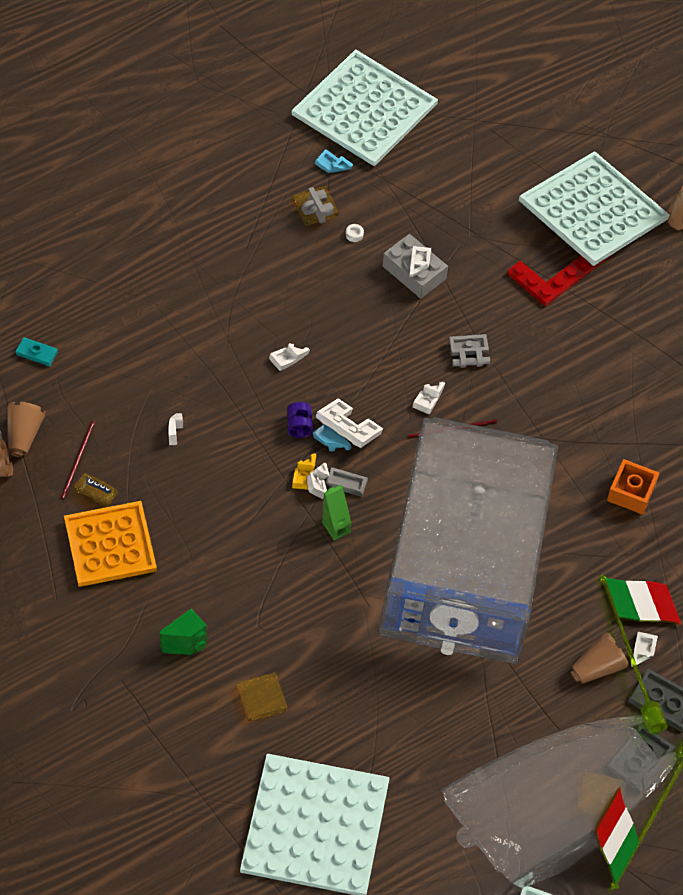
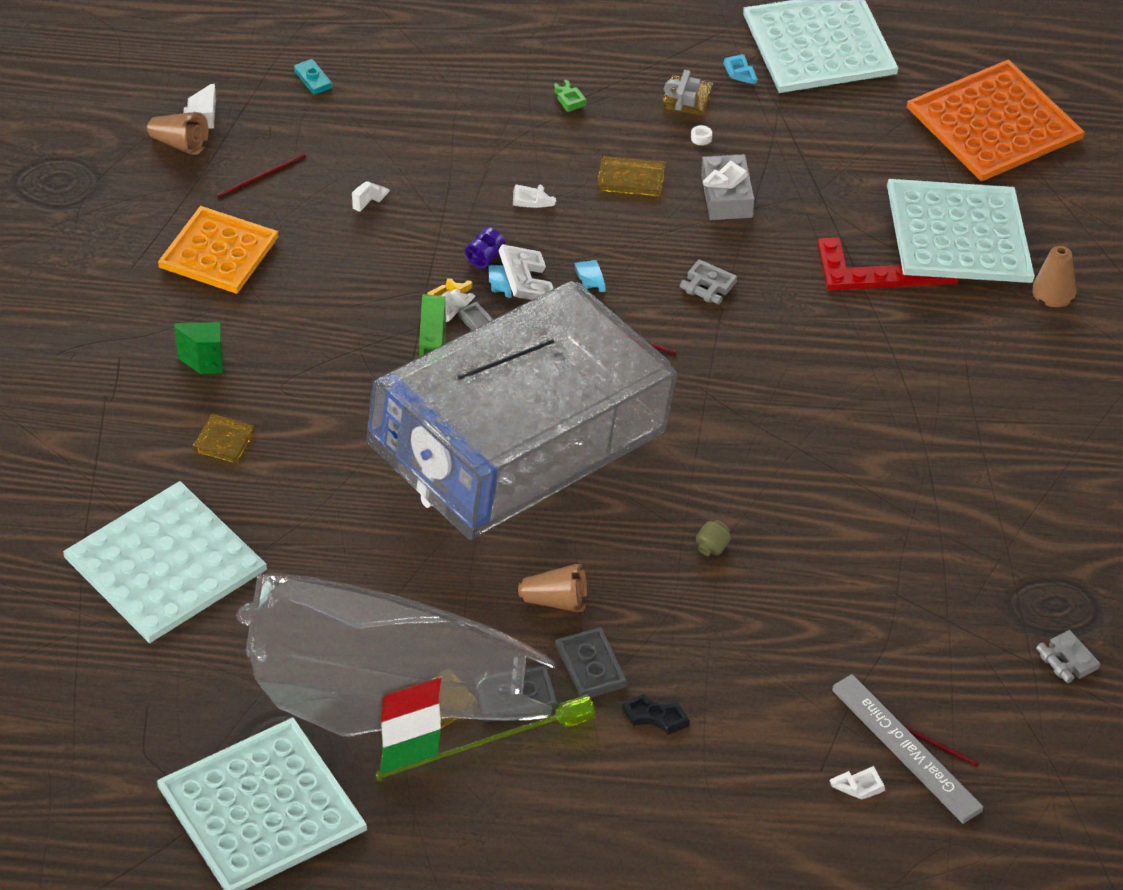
camera: 40 degrees right, 10 degrees down
(22, 426) = (235, 121): medium nougat cone -> none
(95, 488) = (250, 203): clear yellow slope -> none
(240, 257) = (569, 98): none -> bright green plate
(338, 296) = (631, 175): none -> clear yellow tile
(387, 394) = (590, 275): none -> medium azure slope
(428, 397) = (628, 299): white slope -> none
(454, 514) = (508, 358): none -> black piece
(533, 104) = (995, 120): none -> orange plate
(633, 486) = (745, 472): orange brick -> none
(642, 603) = (647, 569): flag -> none
(644, 647) = (616, 611): white slope -> none
(656, 550) = (713, 538): none -> olive head

